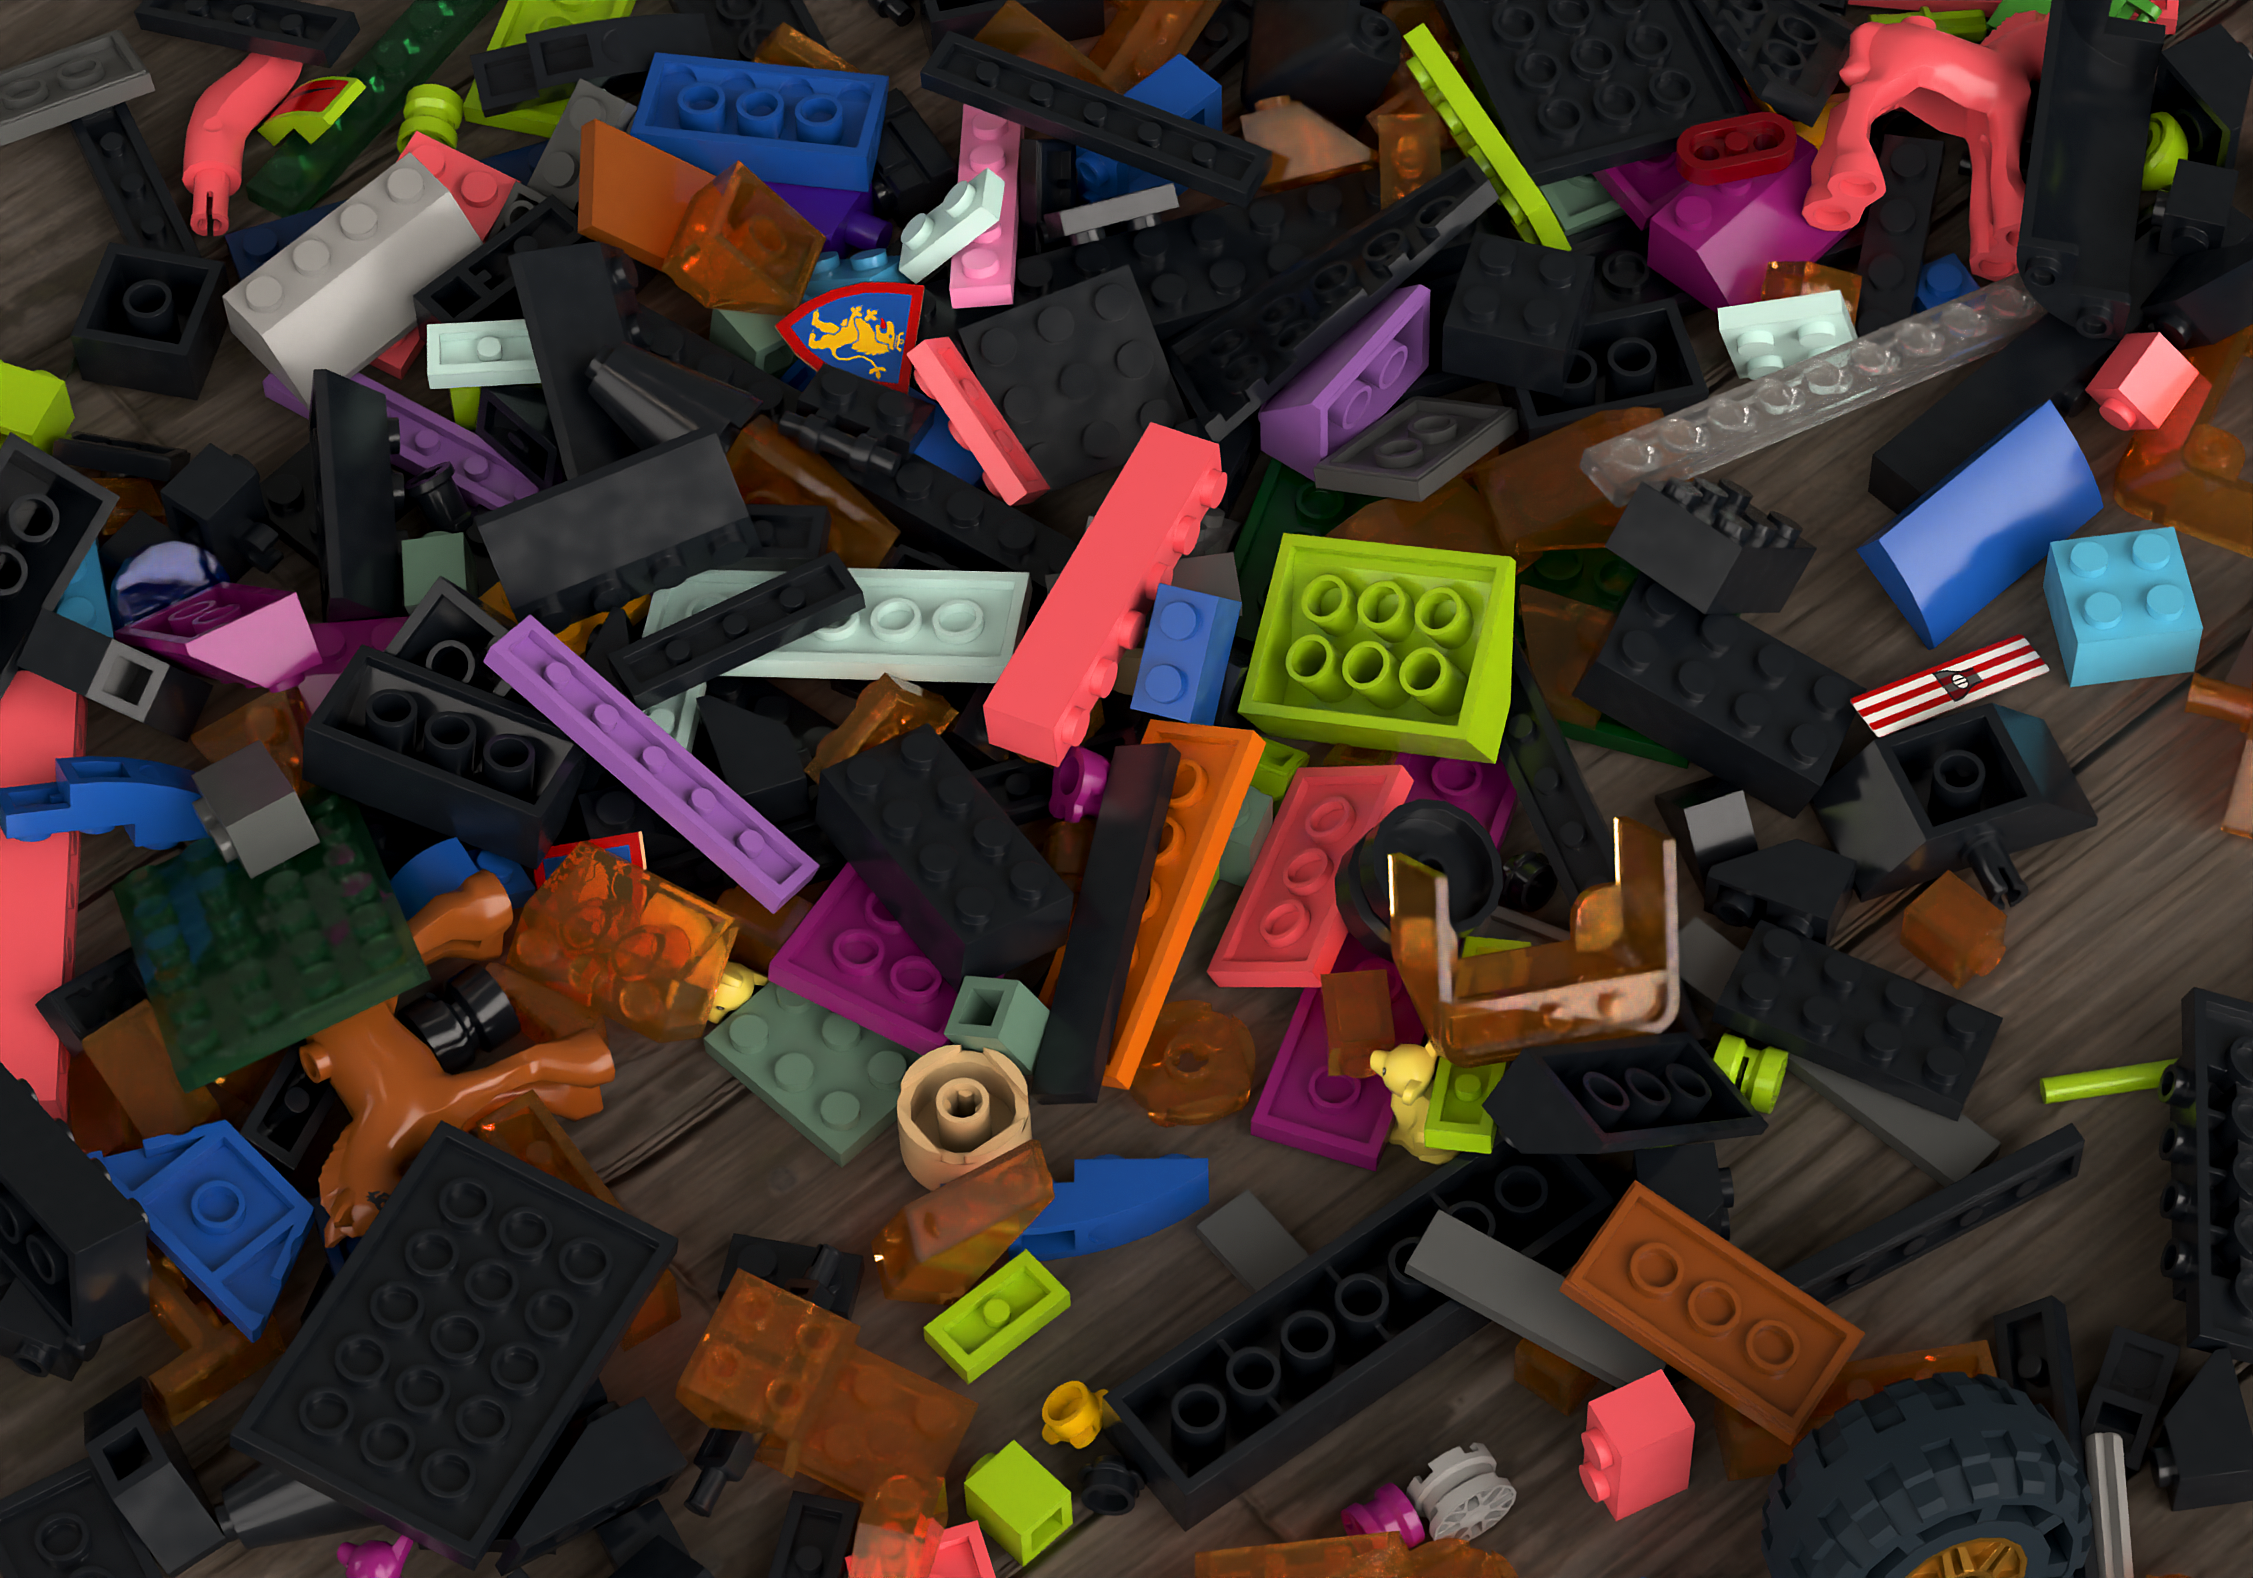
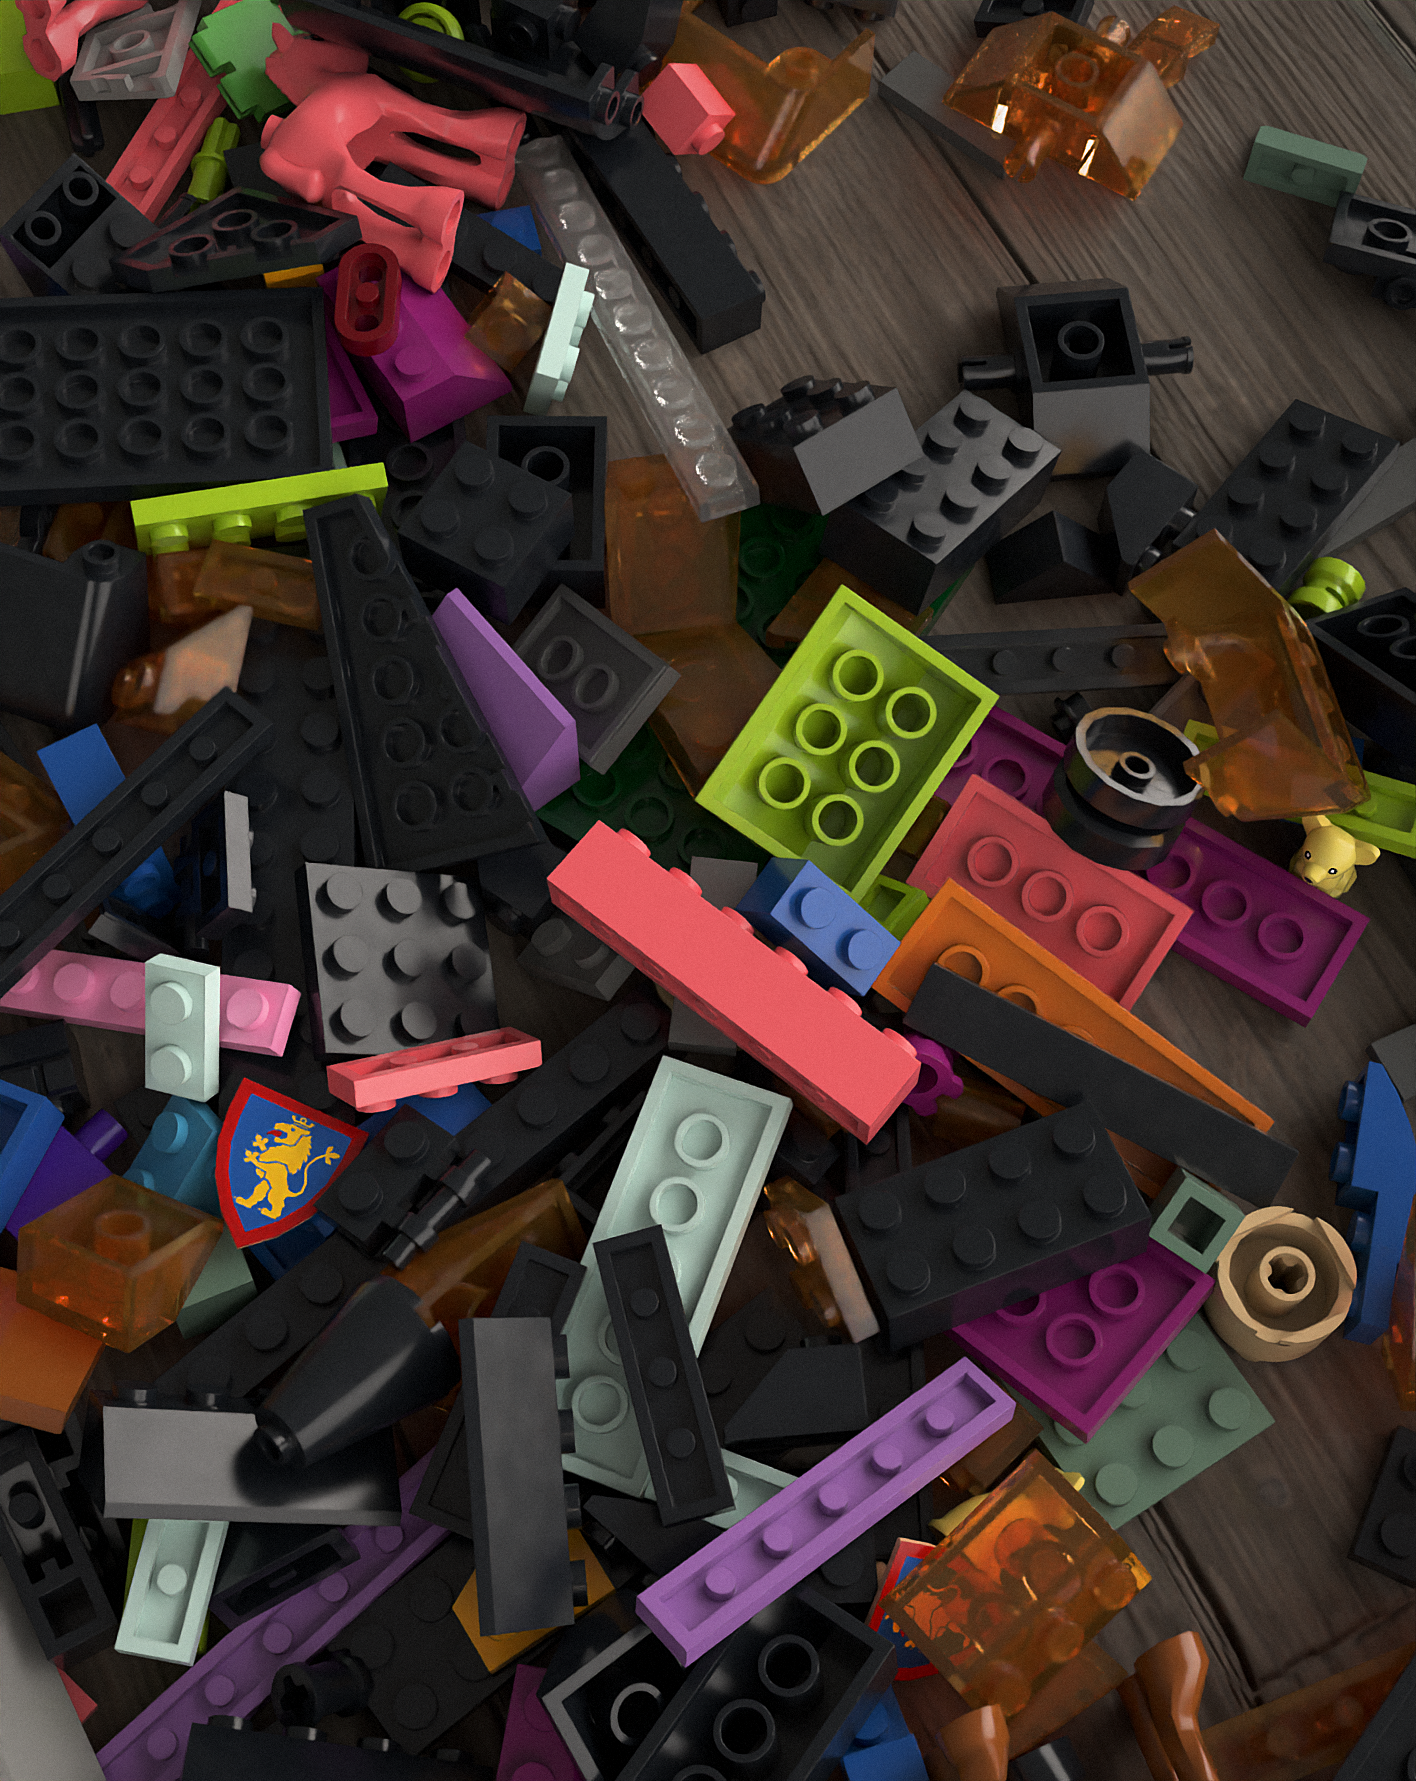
camera: 80 degrees left, 10 degrees up
(436, 556) = (454, 1710): sand green brick -> none
(1199, 1096) = (1246, 1035): clear orange plate -> none
(1355, 1020) = (1246, 890): clear orange brick -> none
(1949, 685) = (962, 337): sticker -> none
(1954, 930) = (1205, 407): clear orange brick -> none
(1984, 524) = (786, 265): slope -> none
(2102, 1081) = (1362, 337): lime bar -> none
(2122, 606) = (903, 197): medium azure brick -> none

